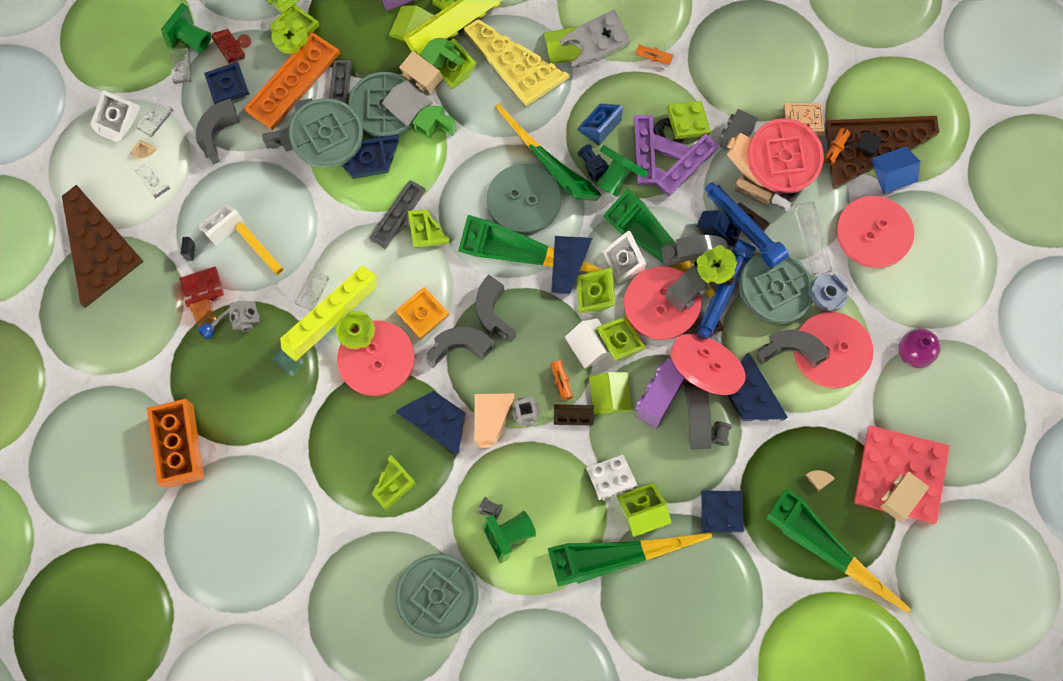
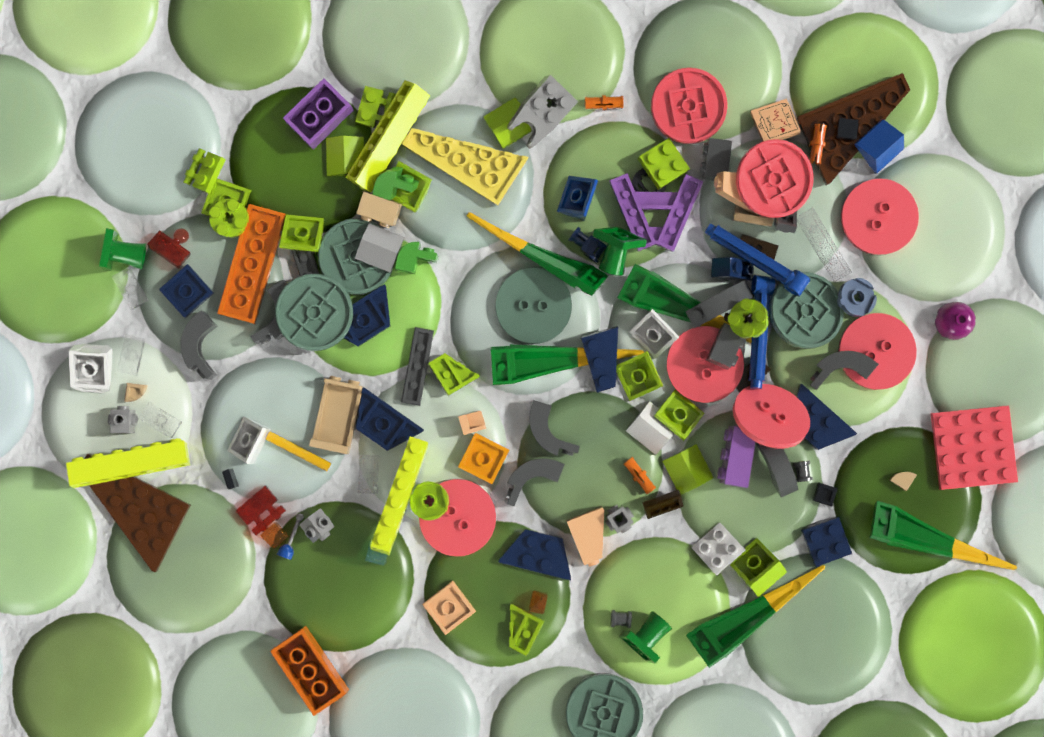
camera: 20 degrees left, 15 degrees up
(105, 201) = (128, 463): none -> neon yellow brick
(119, 166) = (122, 420): none -> light grey brick
(307, 229) = (337, 415): none -> tan panel
(331, 438) = (449, 607): none -> light nougat tile
(345, 249) = (383, 422): none -> dark blue wing
(346, 68) = (302, 233): none -> lime slope
(418, 464) = (538, 602): none -> clear orange slope
(425, 279) = (472, 422): none -> light nougat panel
(729, 81) = (689, 105): none -> coral plate
(736, 465) = (825, 494): none -> black tile
(904, 496) = (984, 472): tan brick -> none

